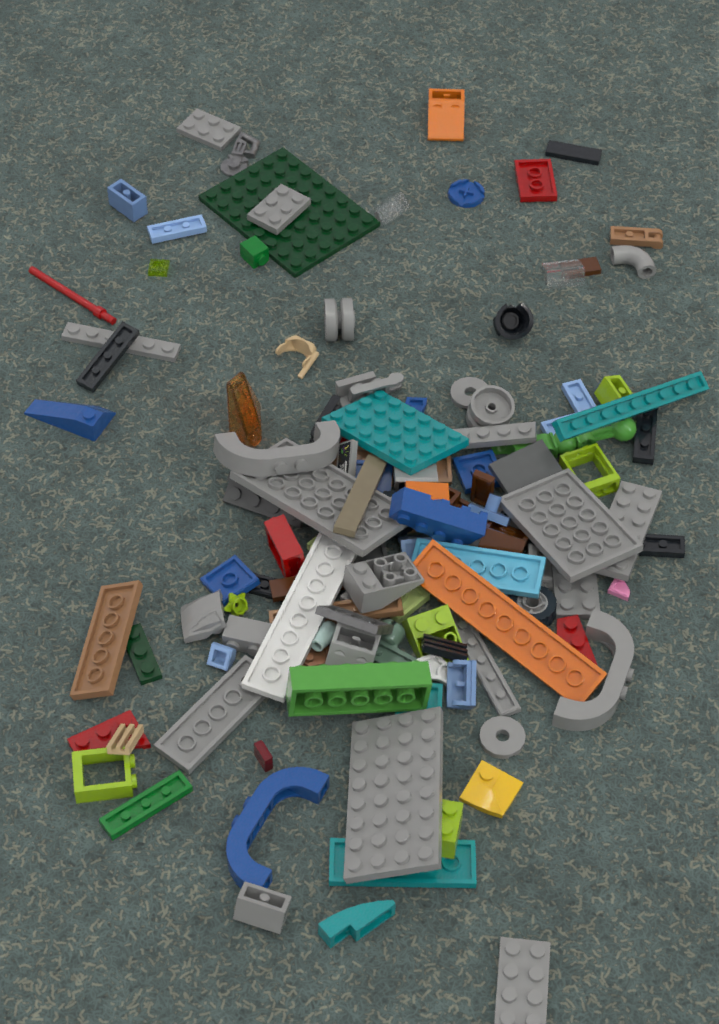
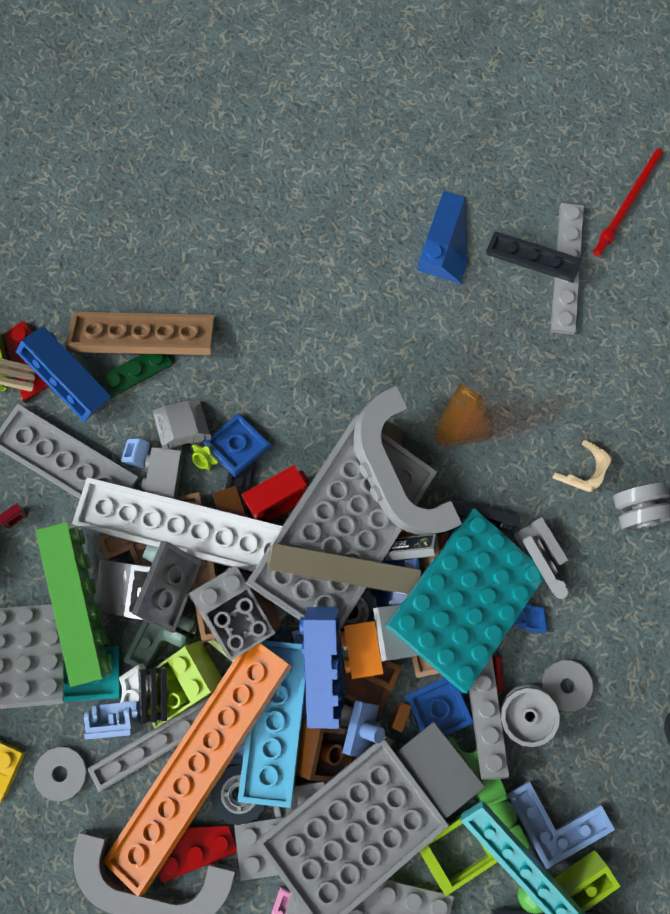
camera: 80 degrees right, 25 degrees up
(135, 696) = (63, 373): none -> blue brick

